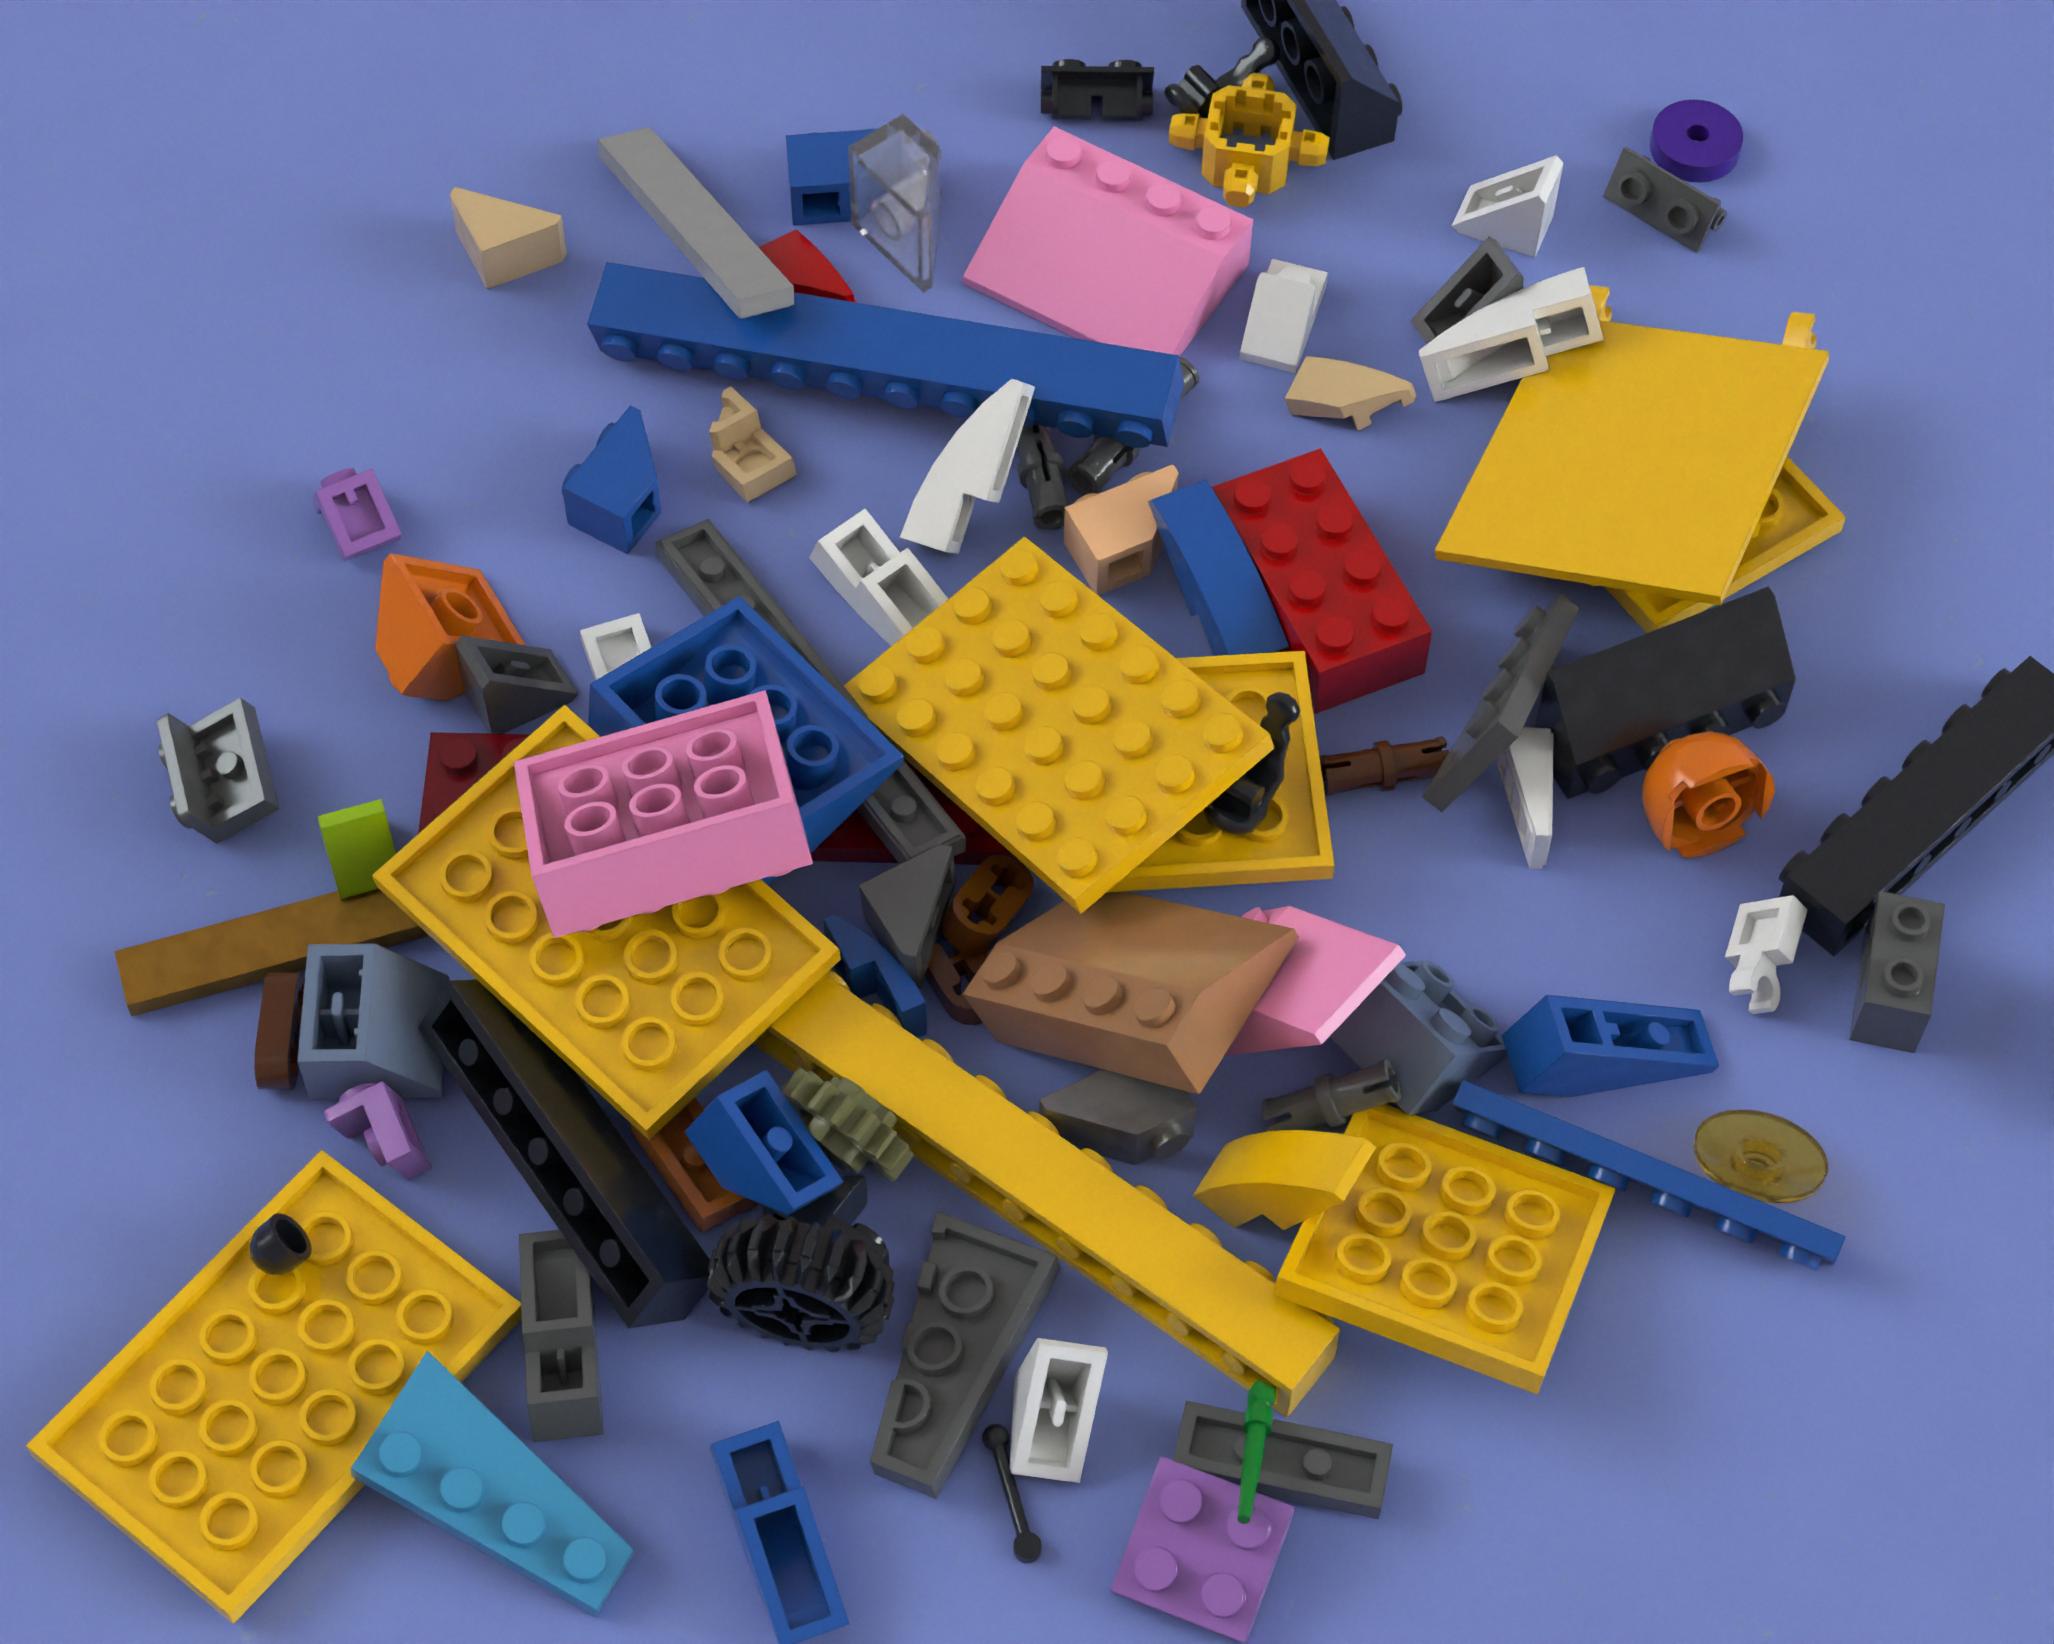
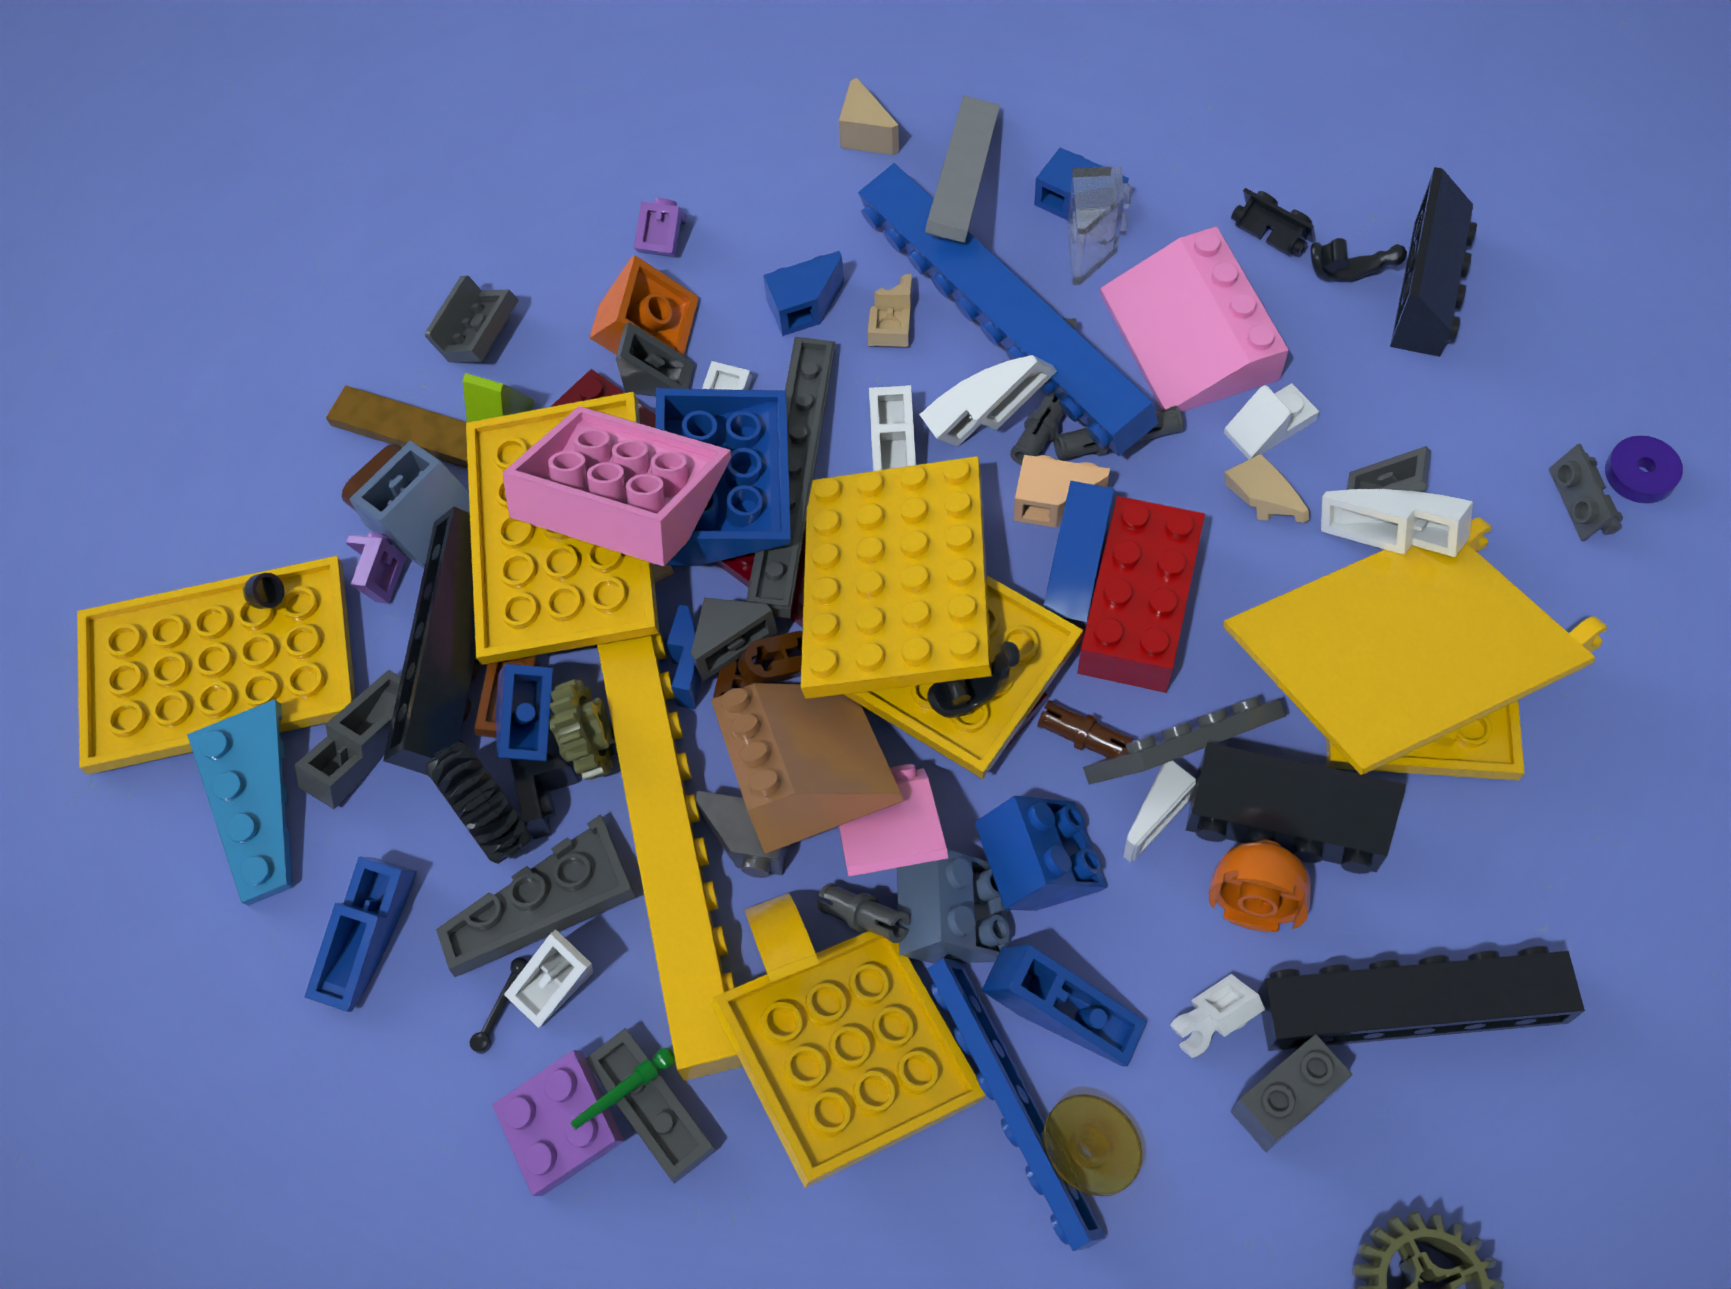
camera: 45 degrees right, 5 degrees up
(806, 267) = (1007, 232): red slope -> none
(1243, 169) = (1339, 328): yellow piece -> none
(1452, 915) = (1039, 853): none -> blue slope
(1512, 206) = (1476, 441): white slope -> none

